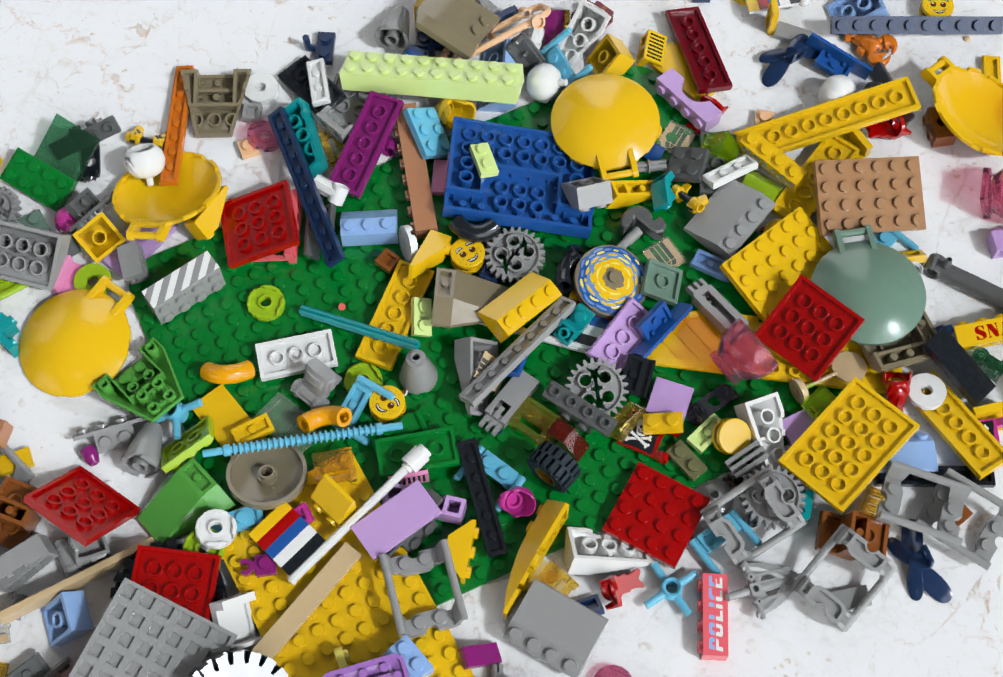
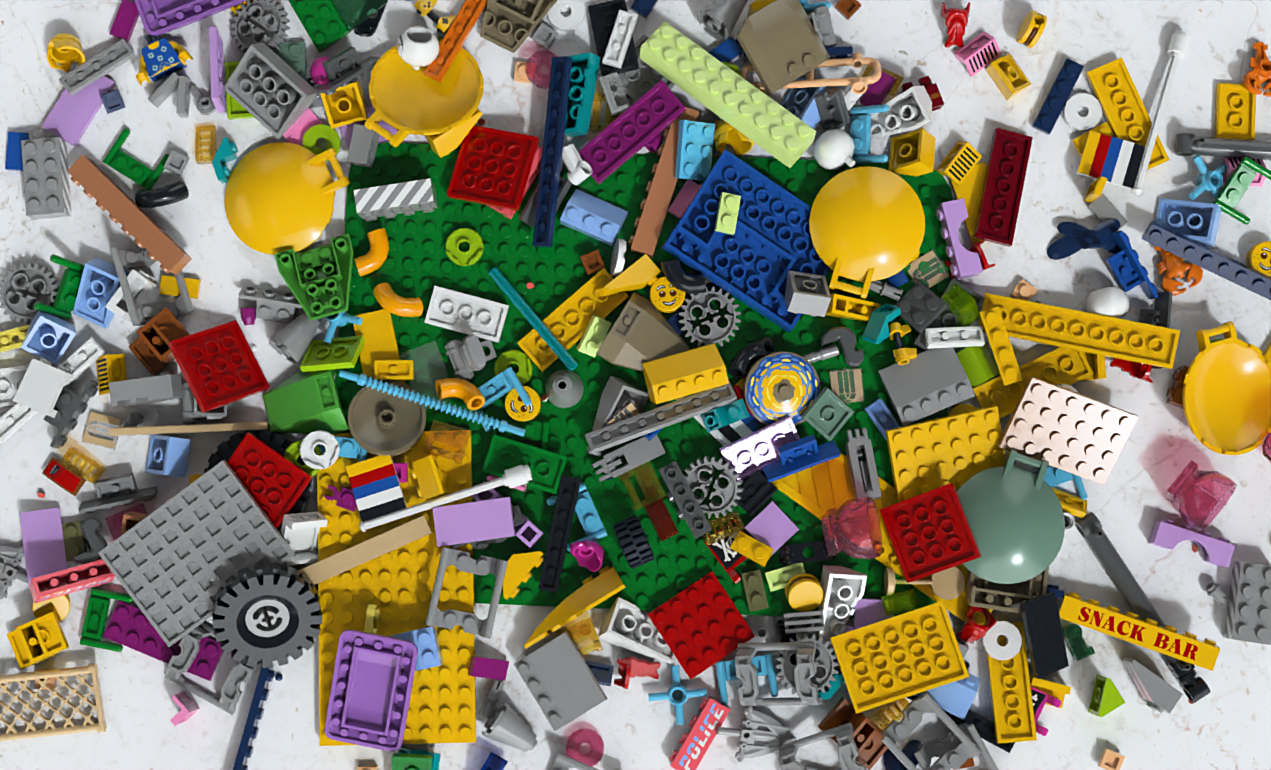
camera: 30 degrees right, 20 degrees up
(188, 344) = (376, 255): none -> light orange cylinder

